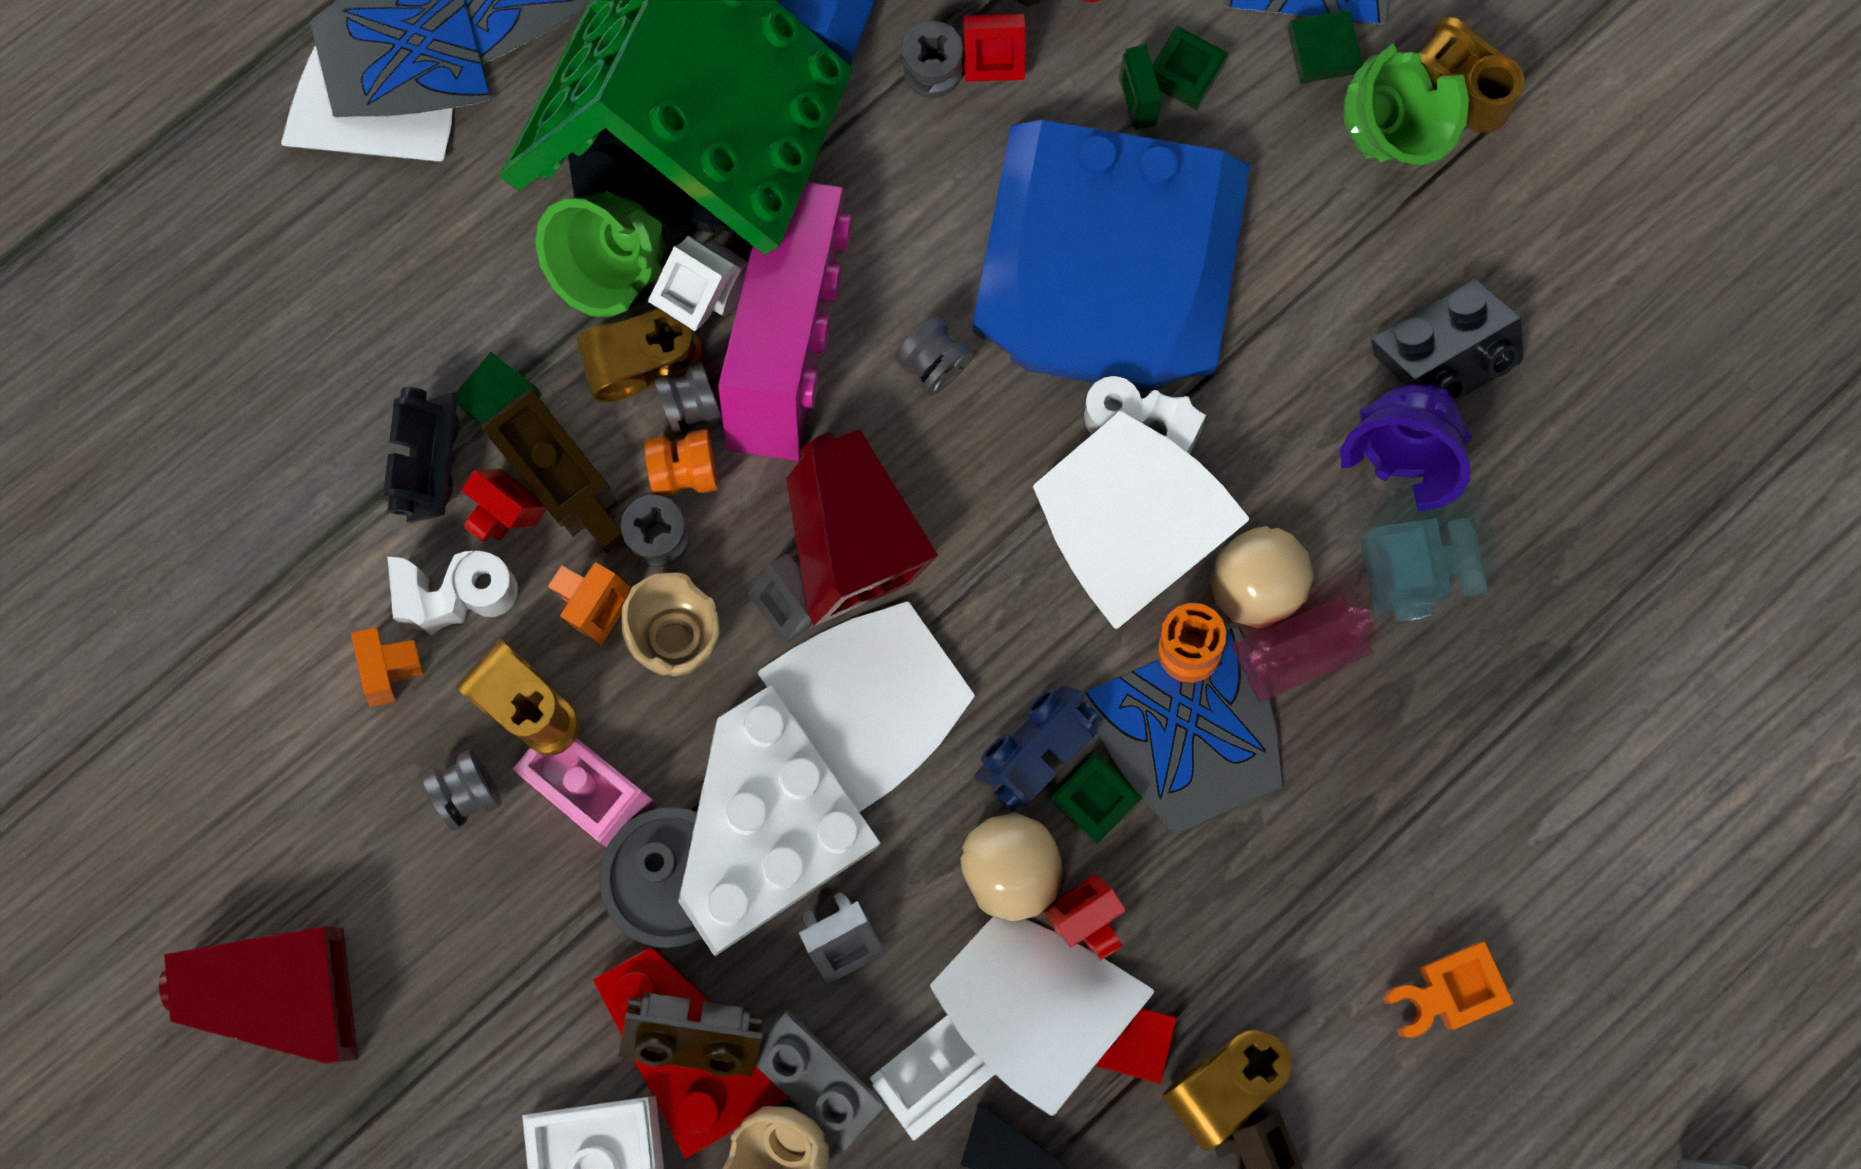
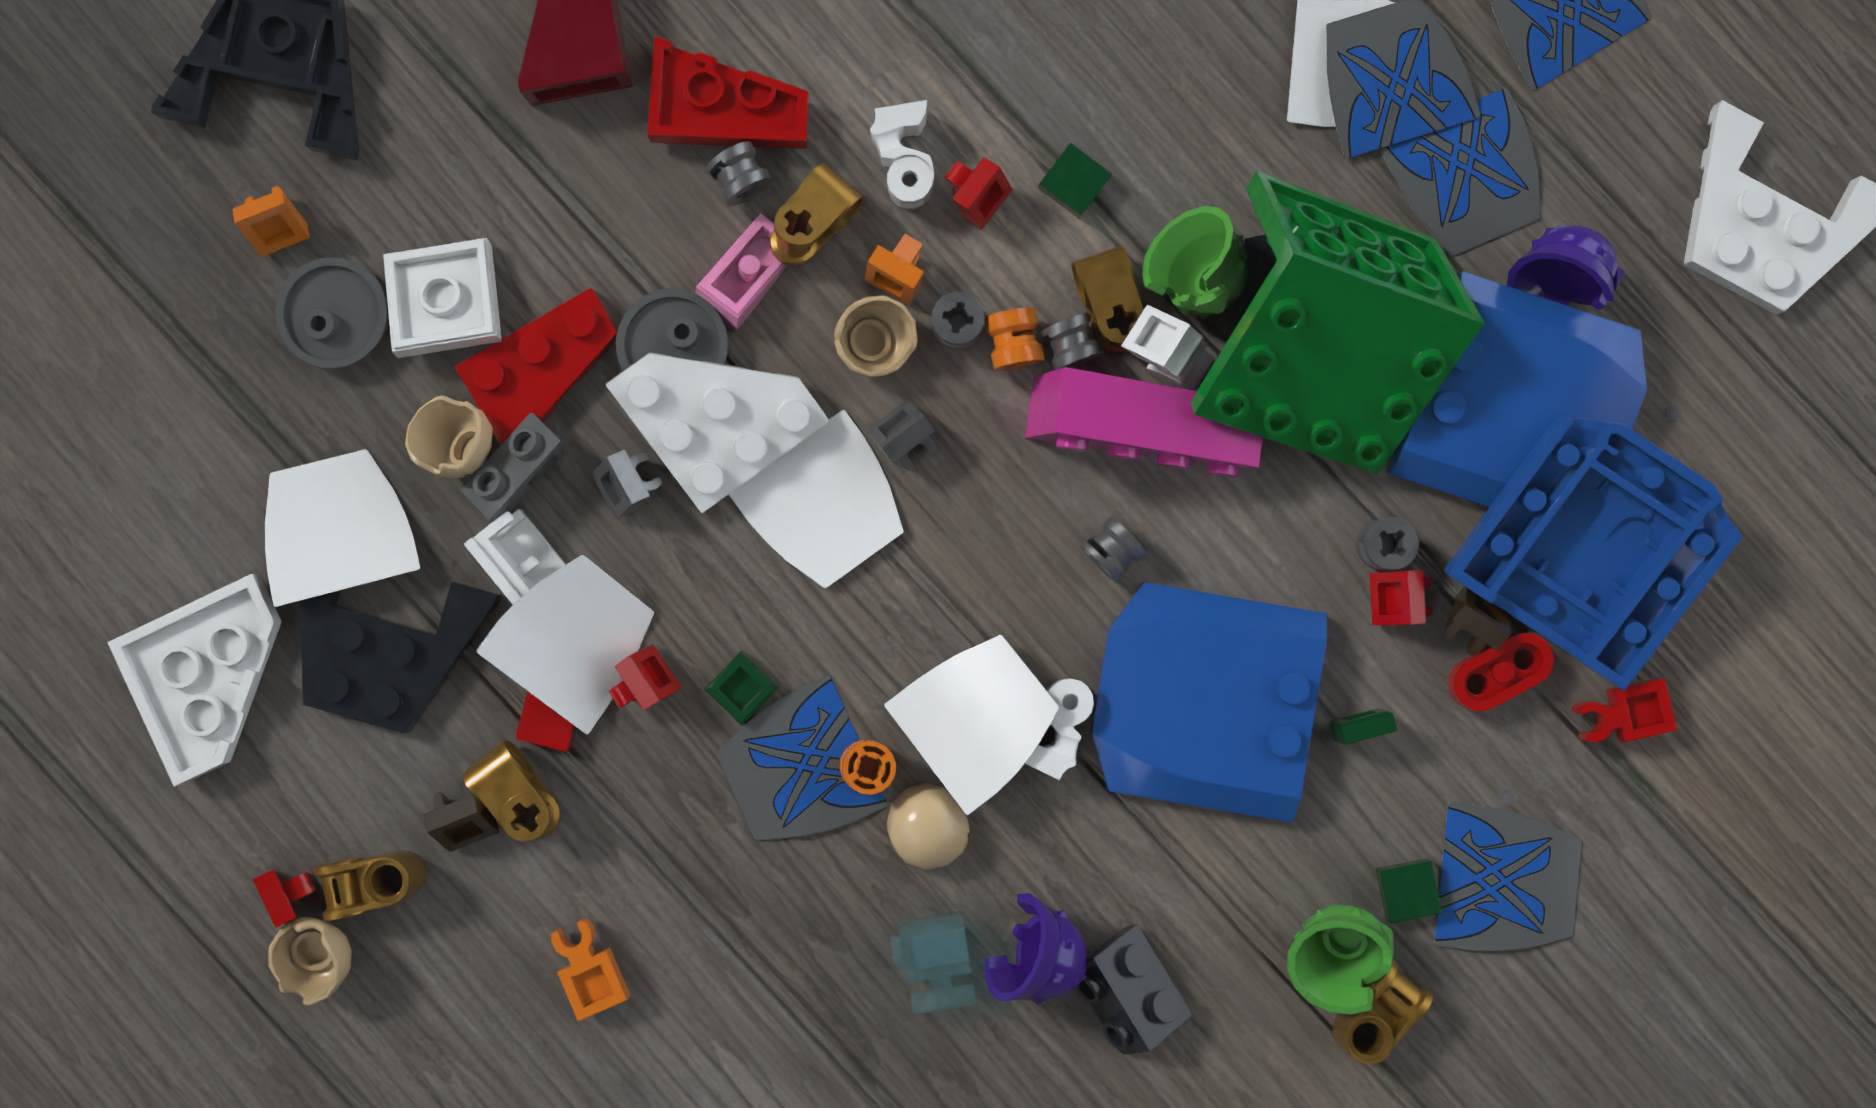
camera: 90 degrees right, 10 degrees up
(376, 815) = (717, 105): none -> red wing
(383, 665) = (839, 99): orange tile -> none
(421, 482) = (1042, 126): black hinge -> none
(554, 468) = (1008, 233): dark brown hinge -> none
(660, 1034) = (538, 390): dark brown hinge -> none
(851, 527) = (959, 481): dark red slope -> none
(1012, 866) = (684, 619): tan hair -> none
(1051, 725) = (802, 652): dark blue hinge -> none
(1188, 67) = (1387, 768): dark green tile -> none
(1304, 647) = (867, 860): clear pink hinge -> none

